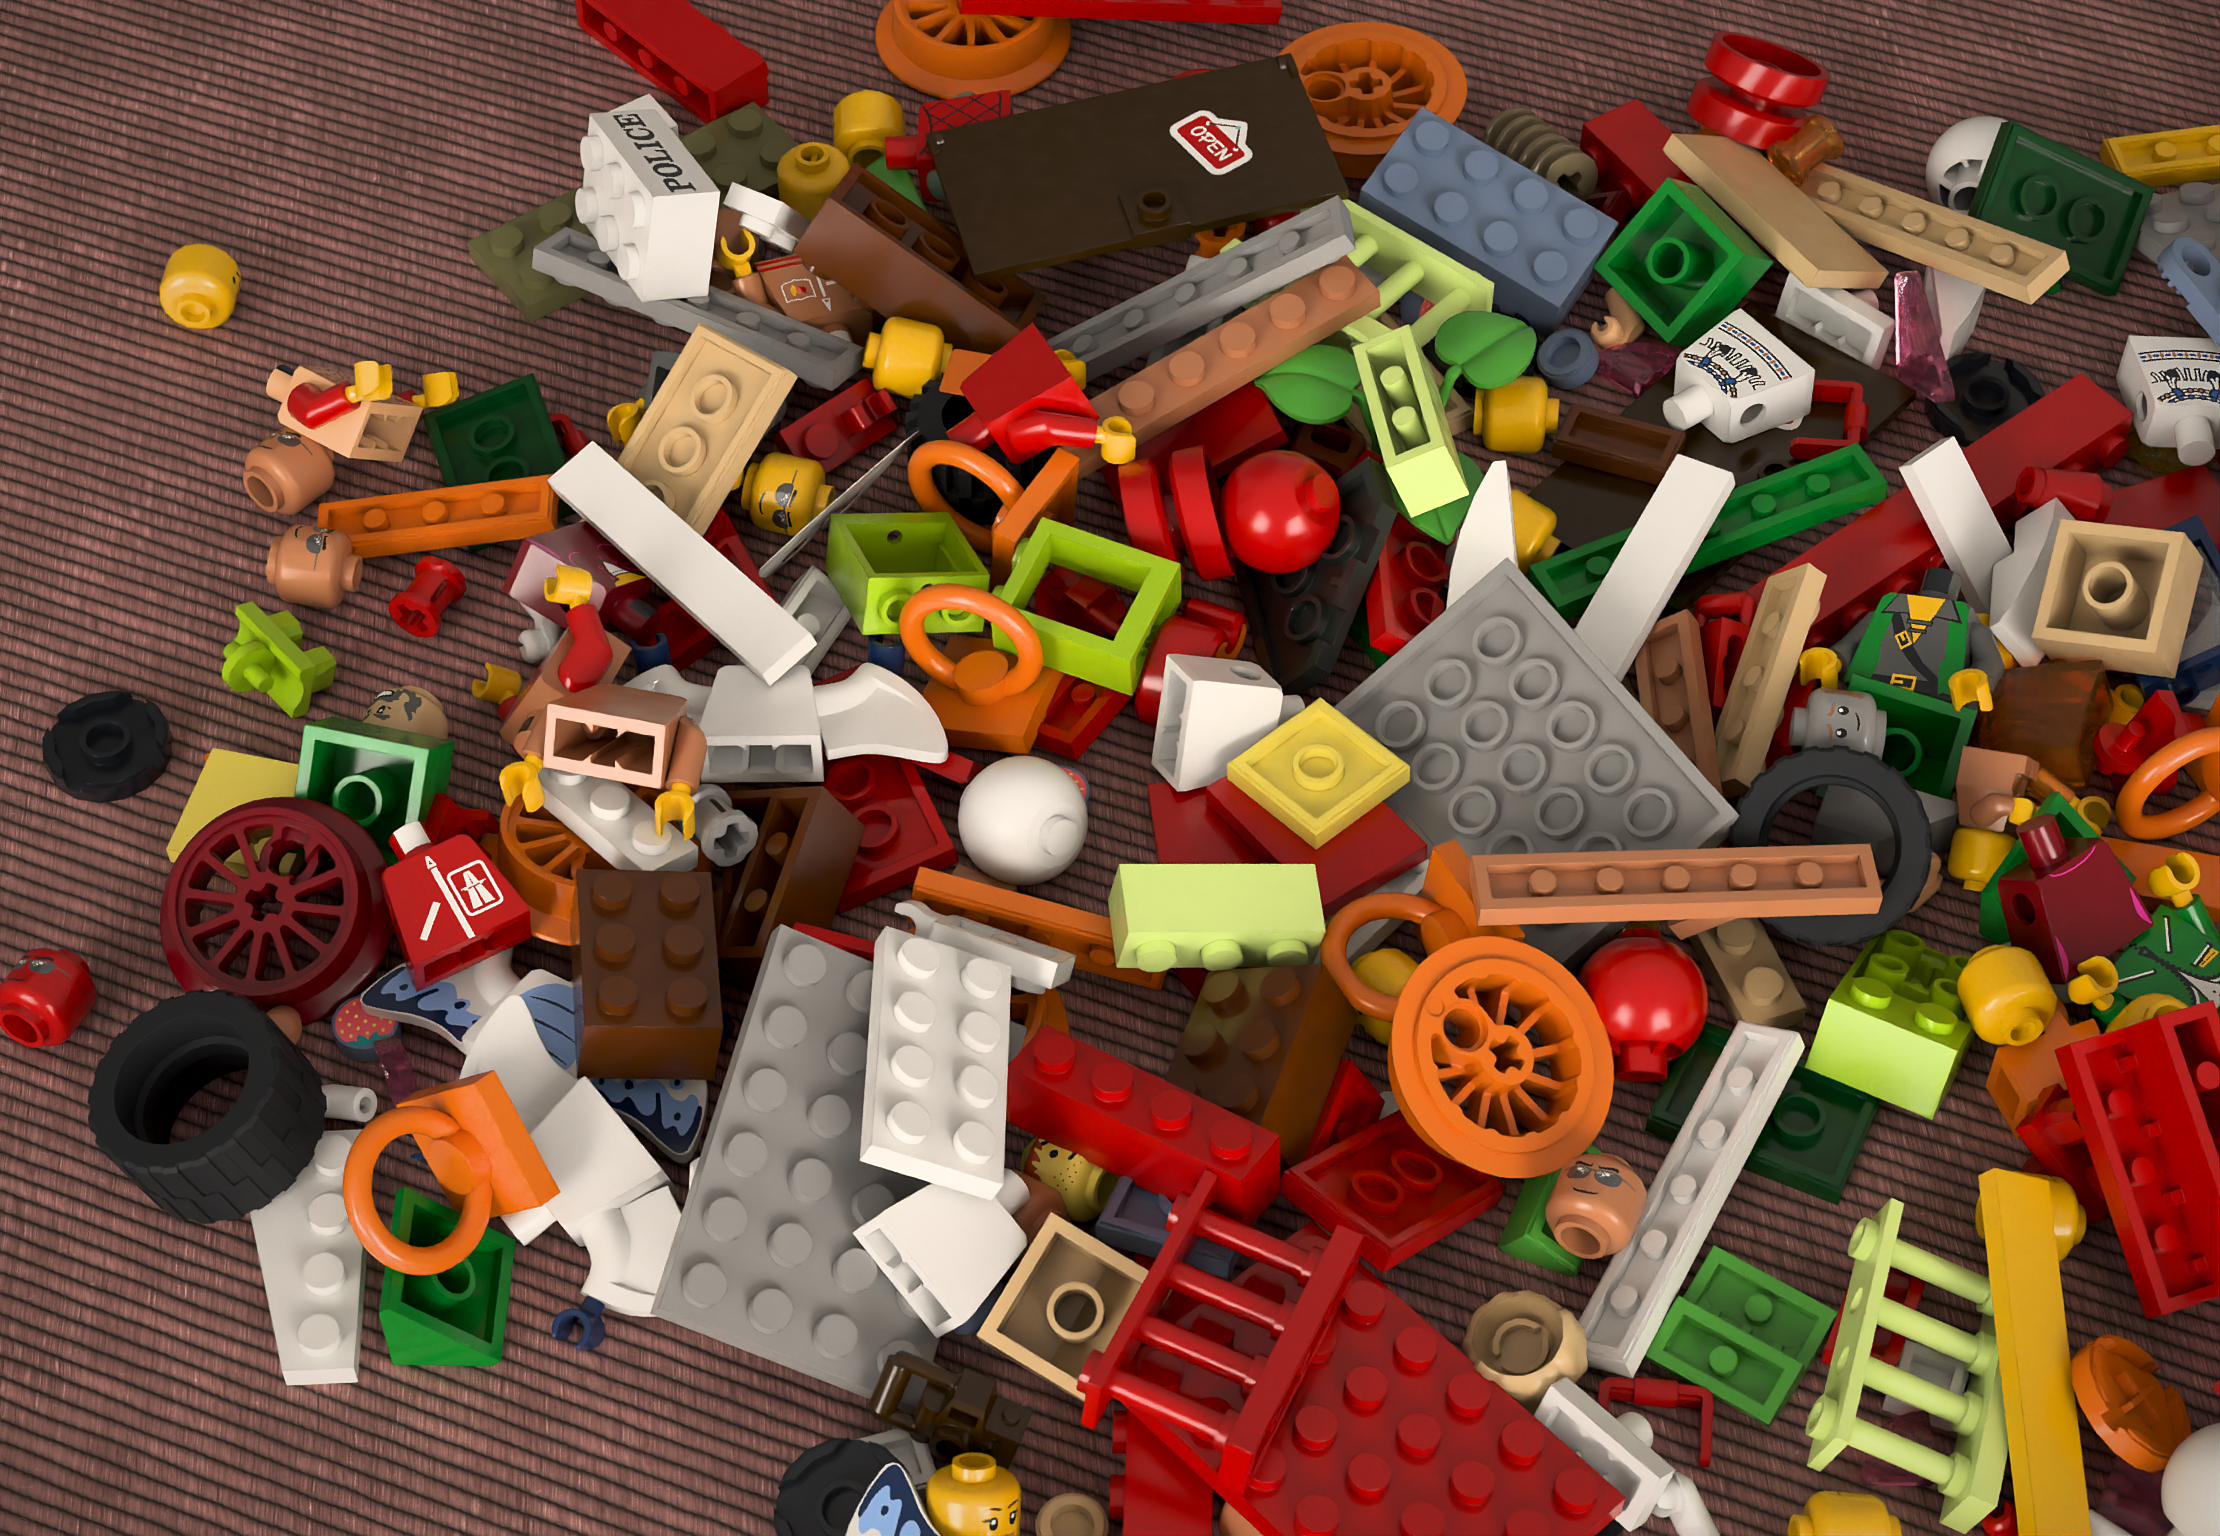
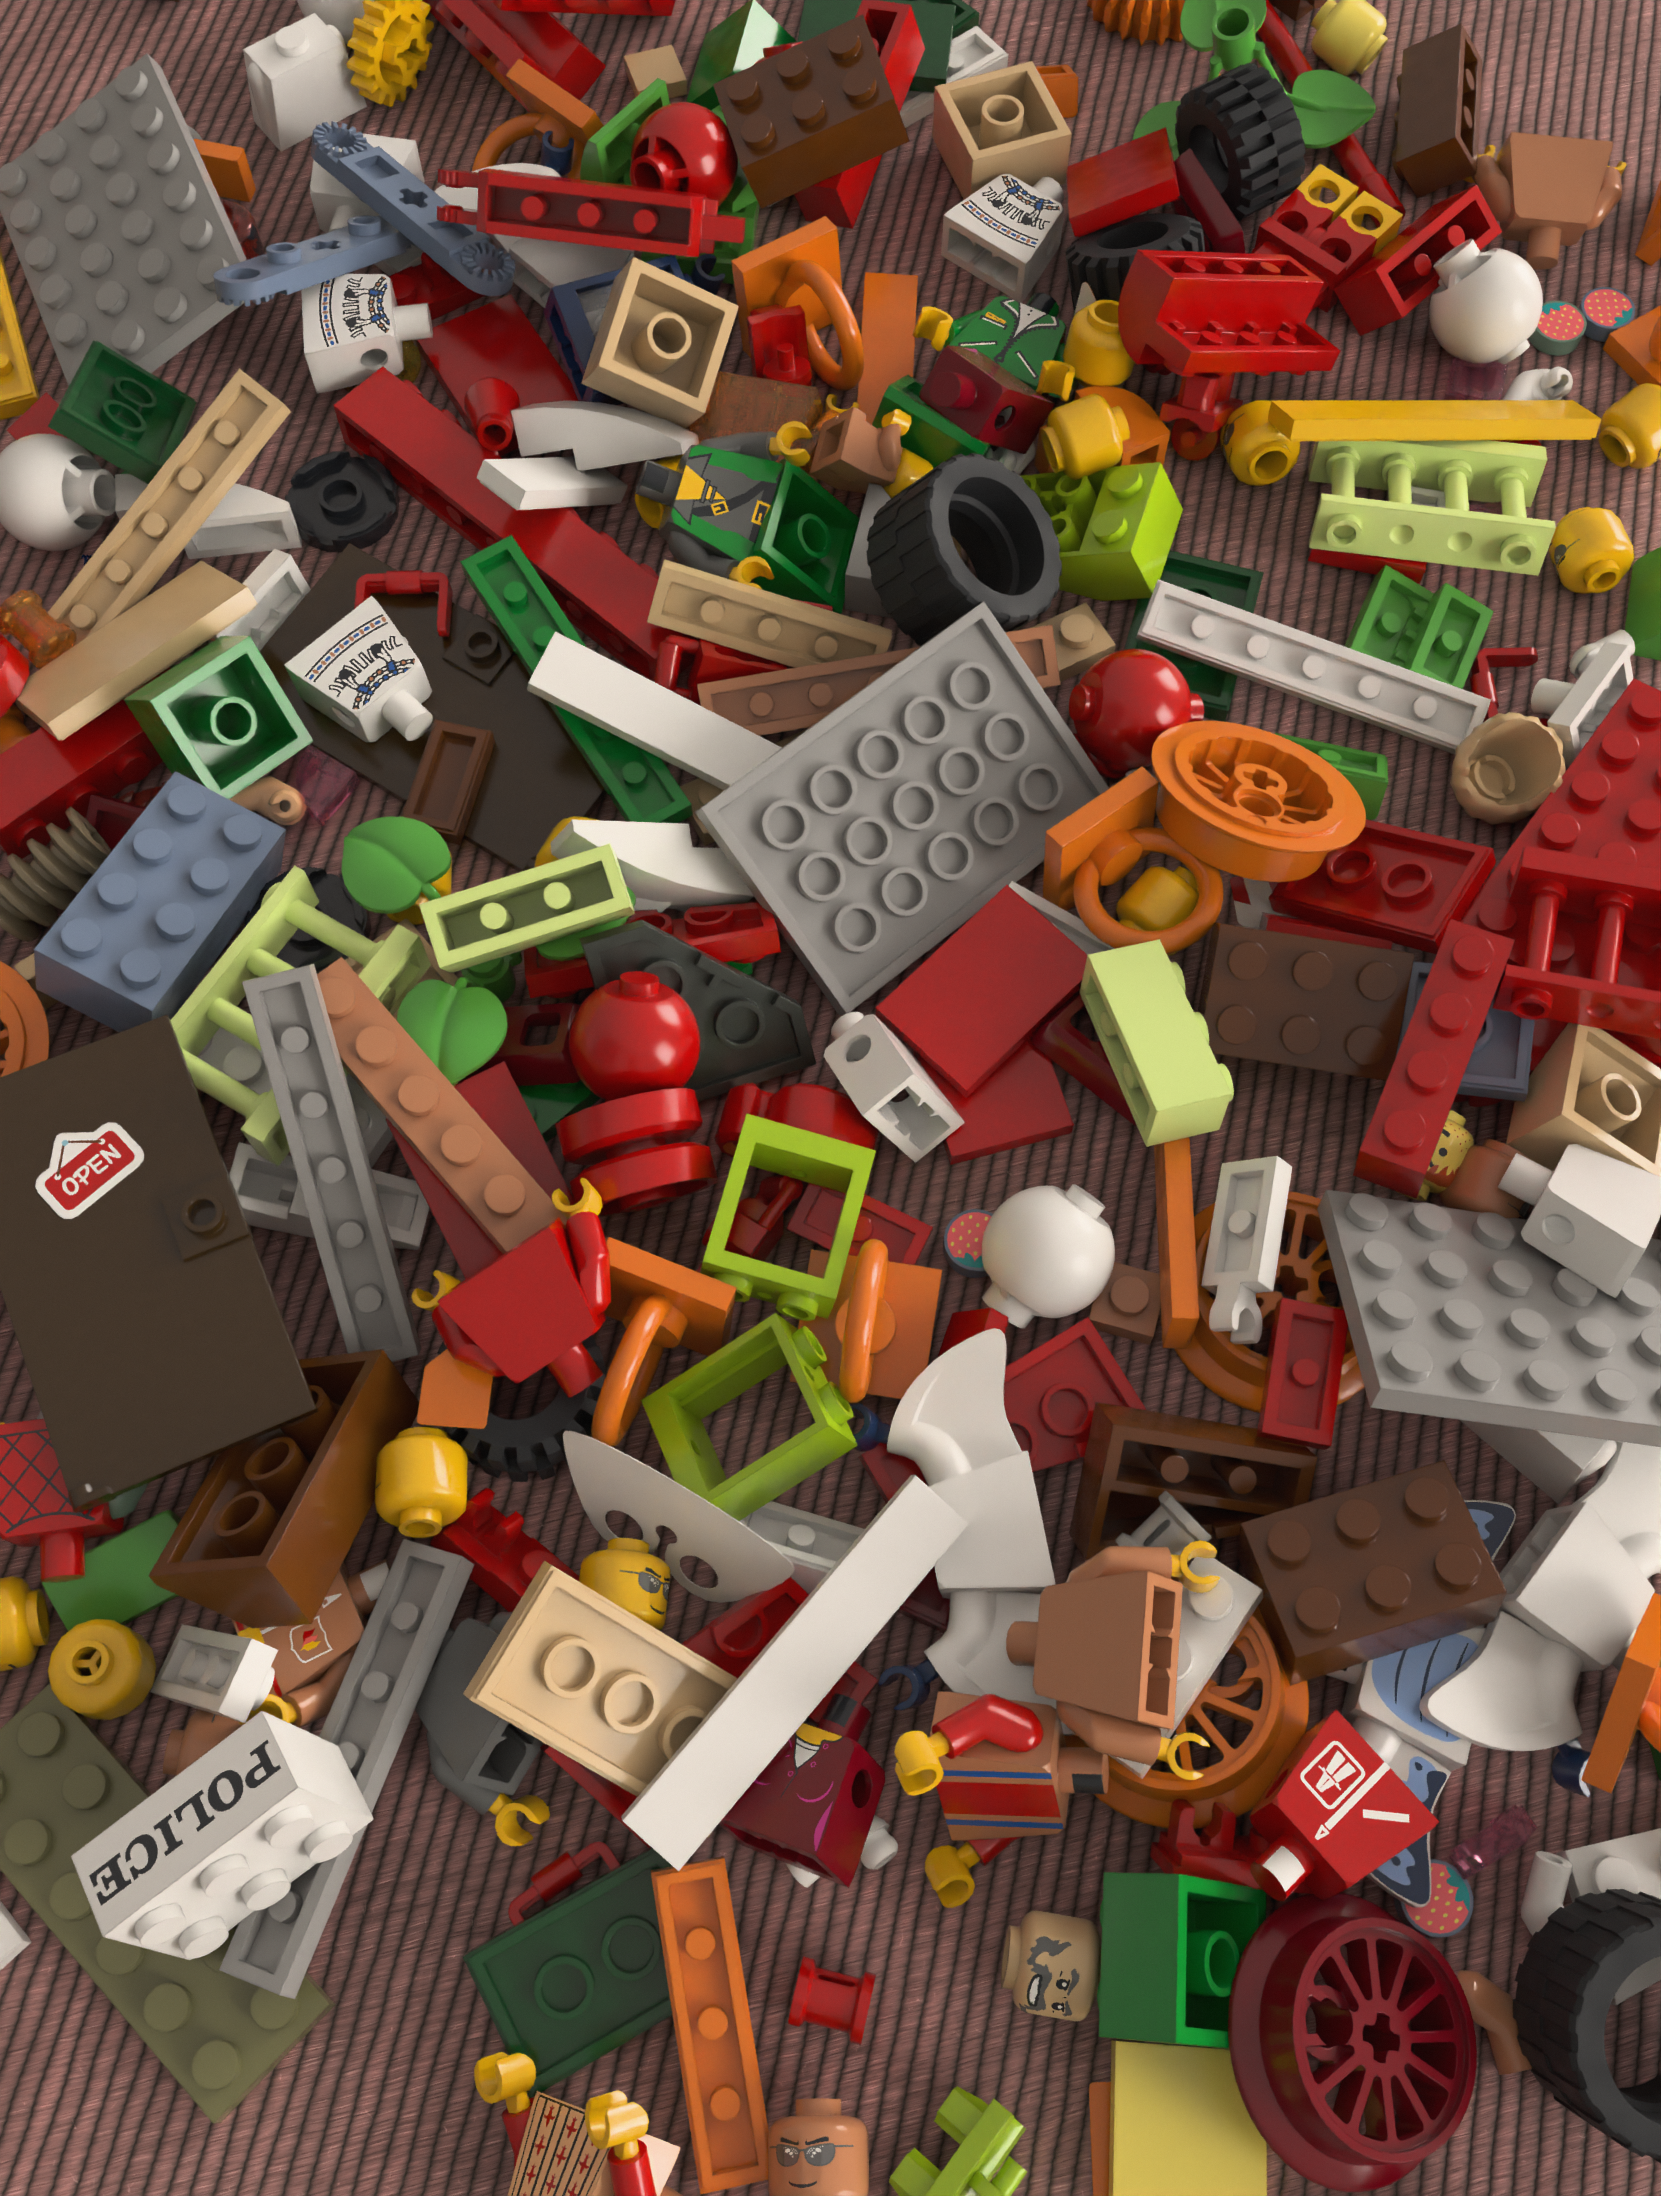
camera: 100 degrees left, 15 degrees up
(937, 1064) = (1461, 1227): white plate -> none
(1318, 773) = (941, 985): light yellow tile -> none
(1568, 358) = (320, 838): sand blue tile -> none
(1595, 1205) = (1358, 723): nougat head -> none
(1674, 884) = (1075, 652): nougat plate -> none
(1841, 720) = (823, 560): light grey head -> none
(1918, 347) = (308, 530): clear pink tile -> none
(2128, 1402) = (1417, 374): orange tile -> none

